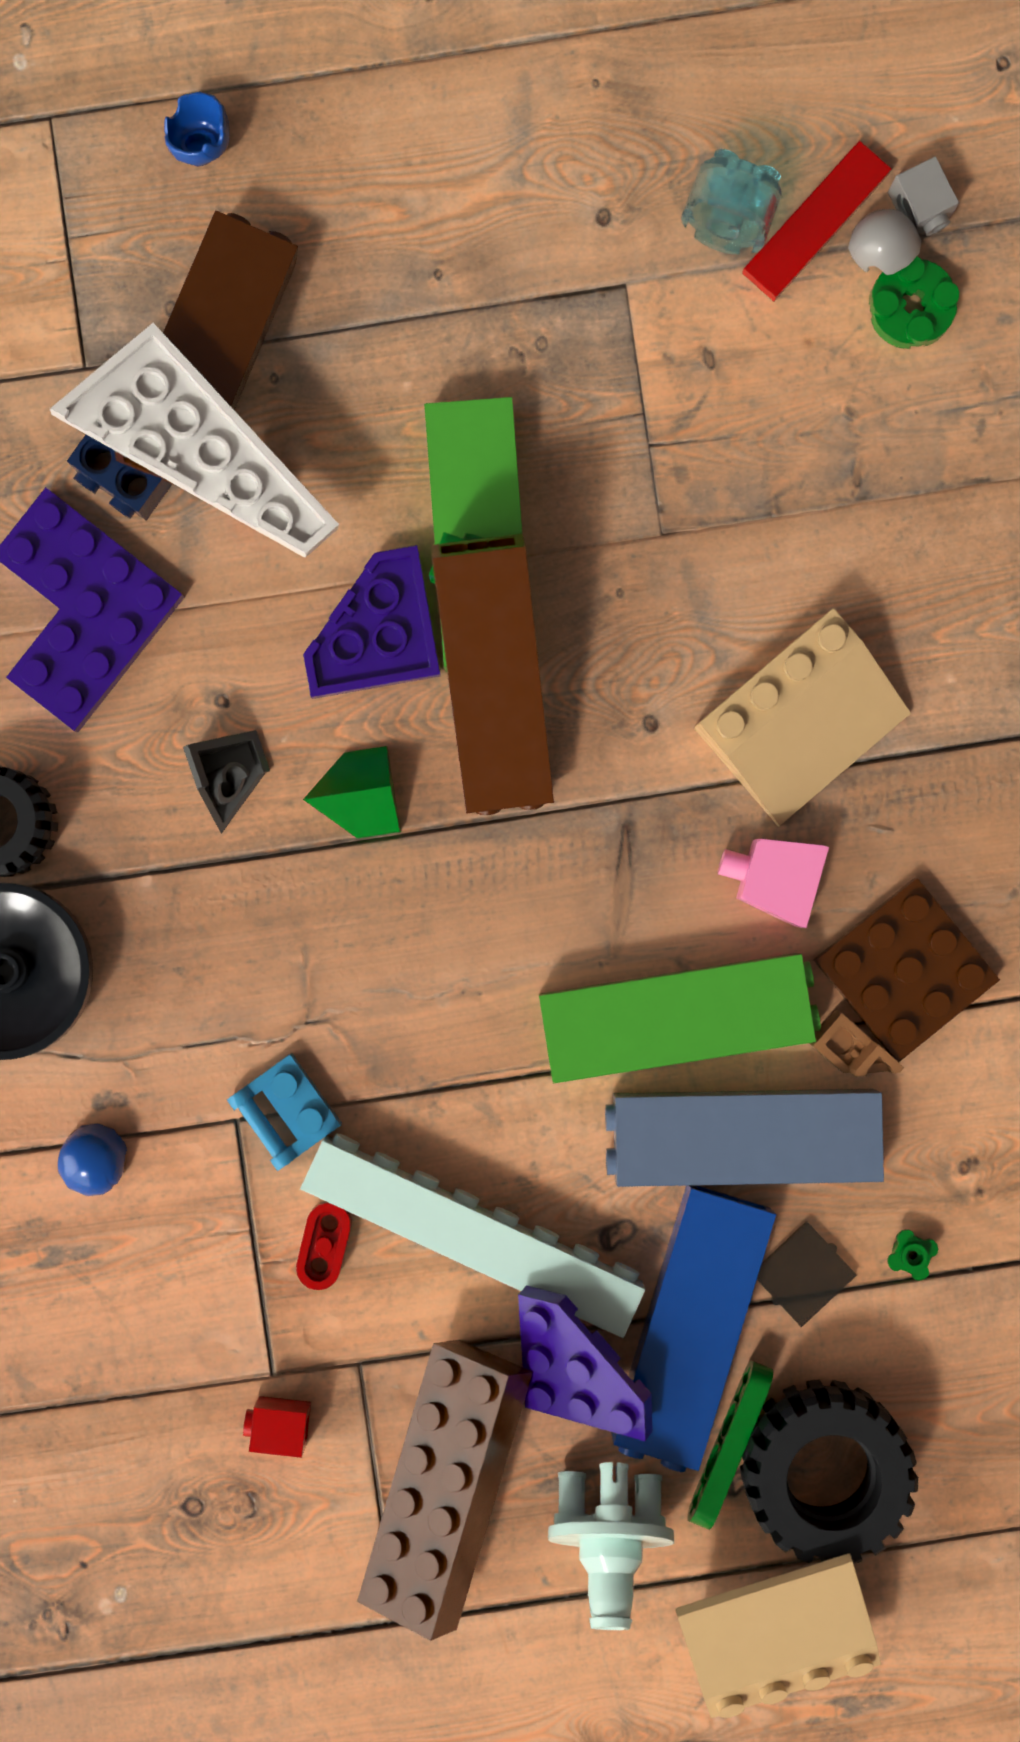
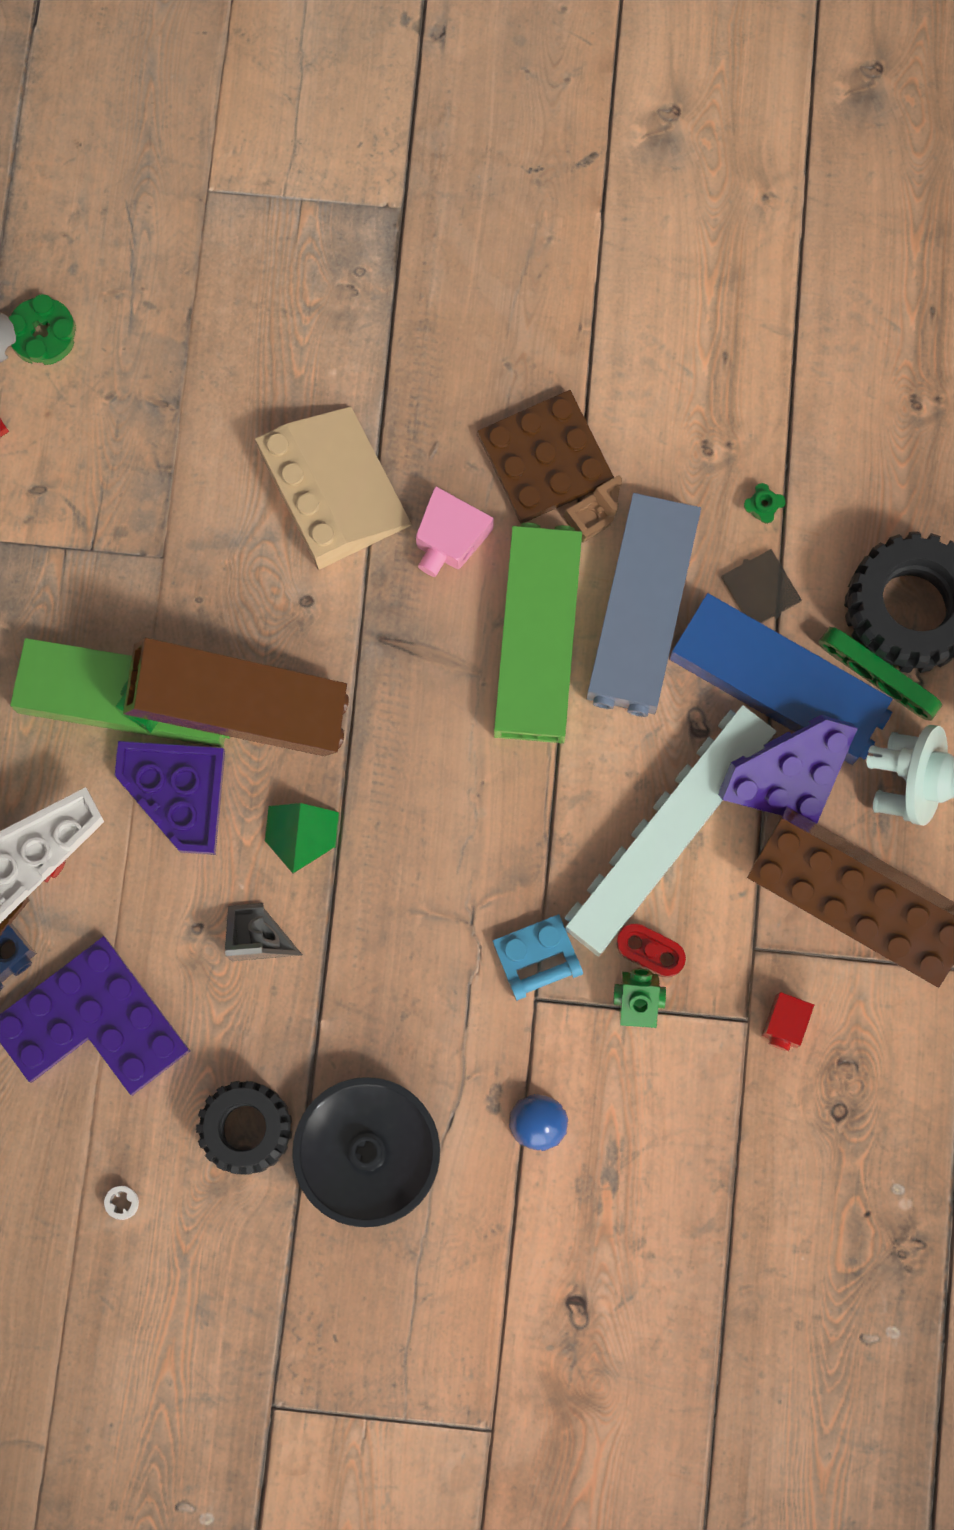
camera: 75 degrees left, 10 degrees down
(260, 1246) = (639, 998): none -> green brick

